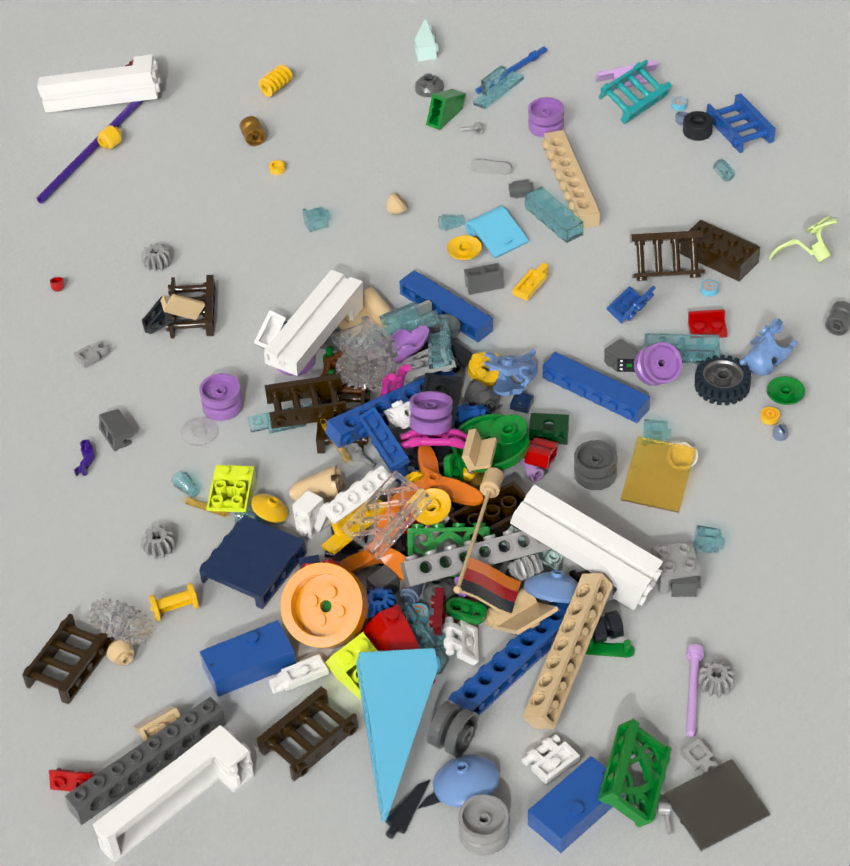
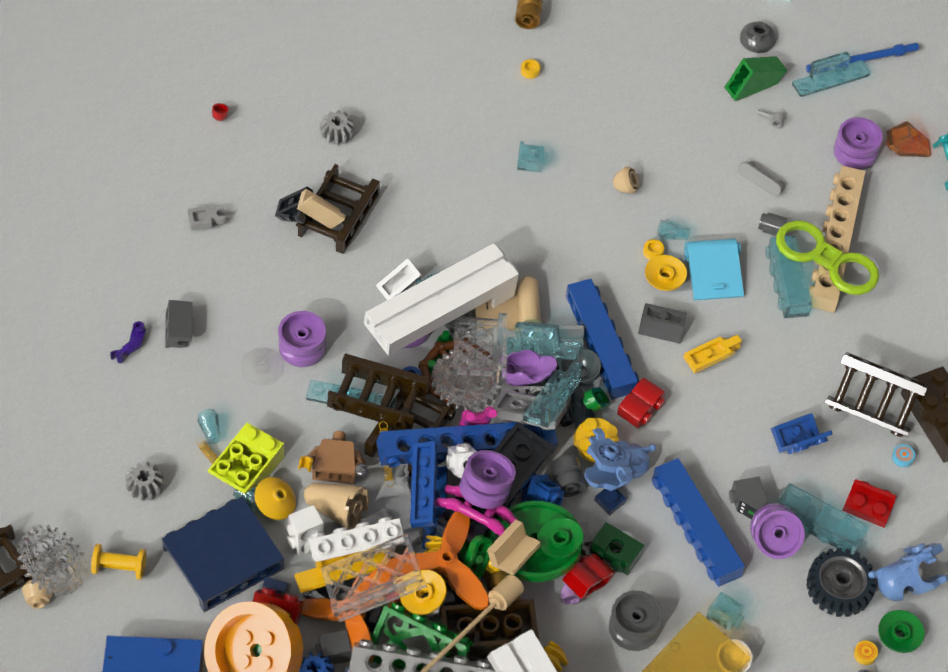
camera: 20 degrees right, 10 degrees up
(300, 462) = (335, 460): none -> medium nougat torso
(443, 238) = (653, 248): none -> yellow tile
(469, 342) = (596, 399): none -> green plate
(503, 332) = (641, 403): none -> red brick
(574, 188) = (827, 257): none -> lime bar
(578, 104) = (908, 141): none -> clear orange slope

